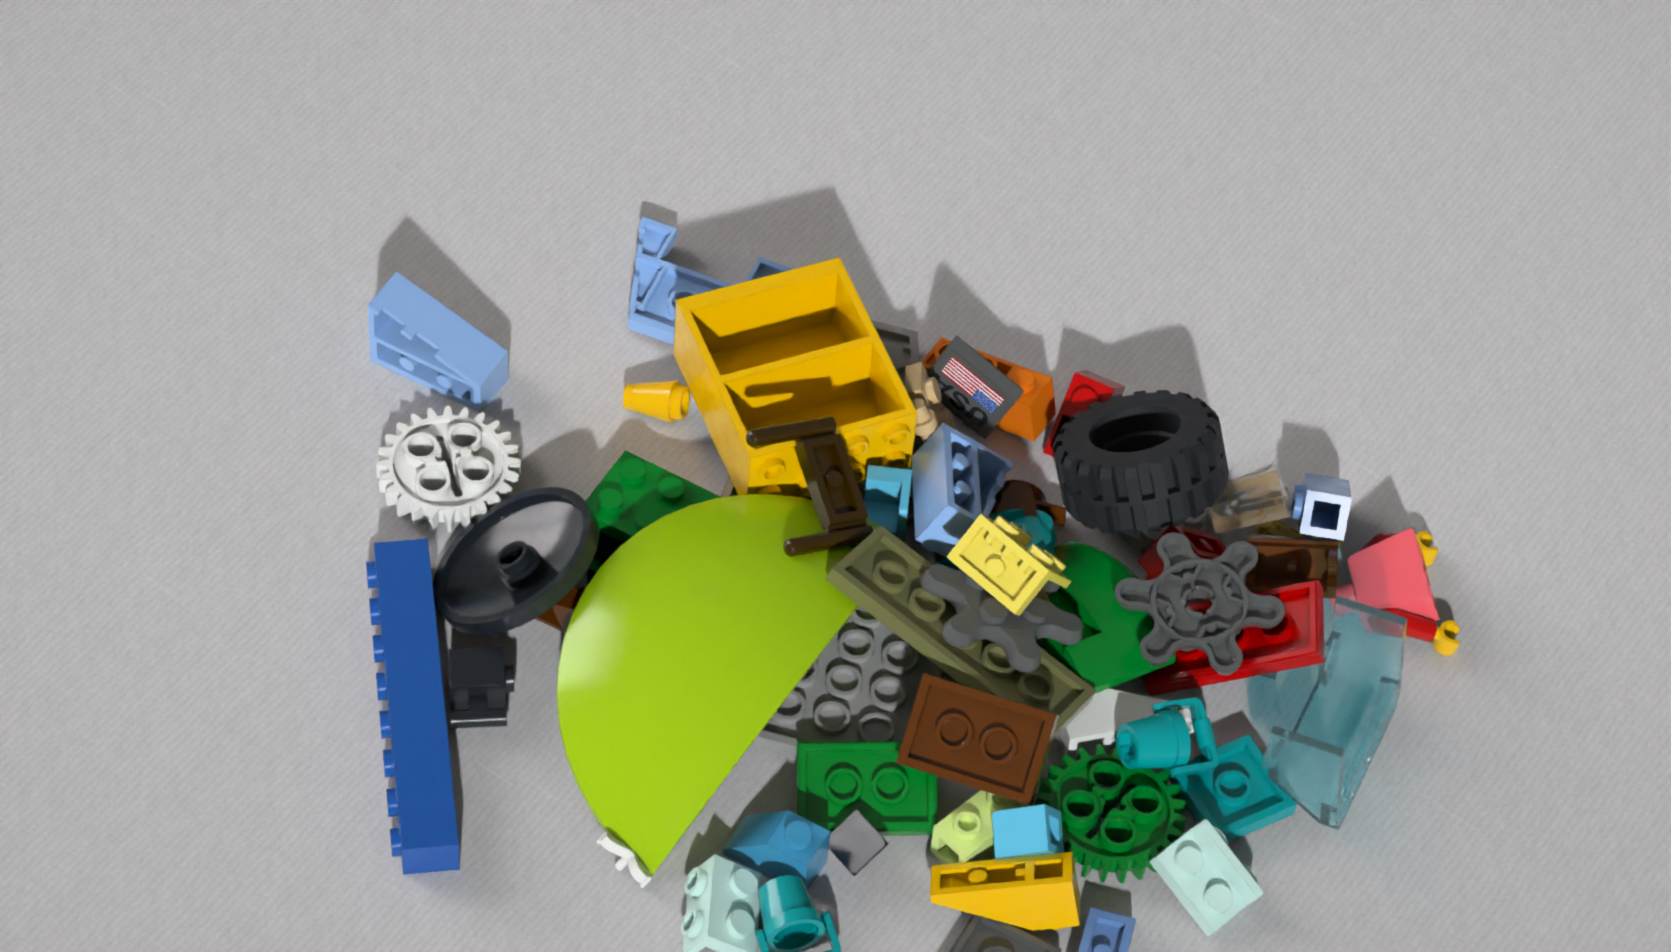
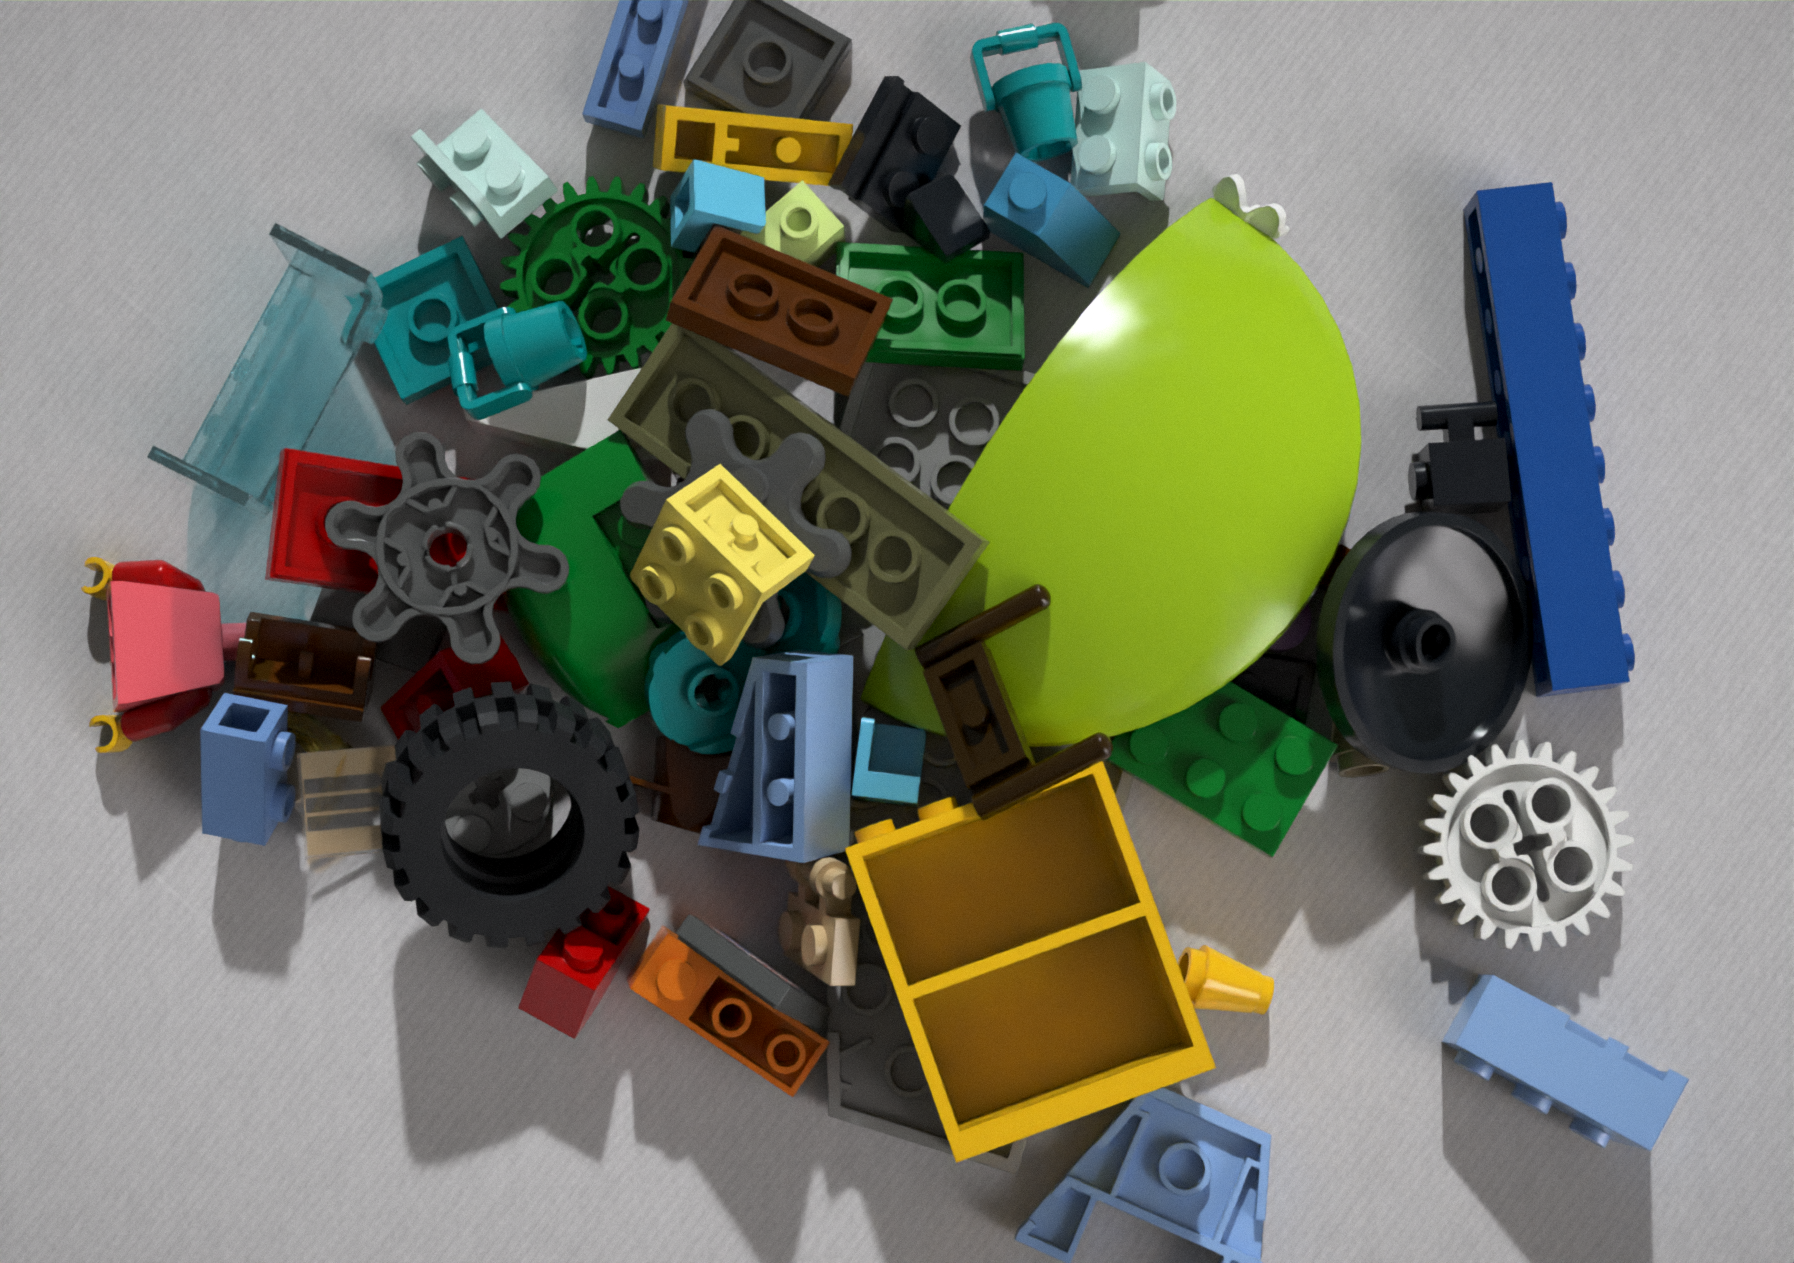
camera: 170 degrees left, 30 degrees up
(896, 888) = (893, 151): none -> black plate

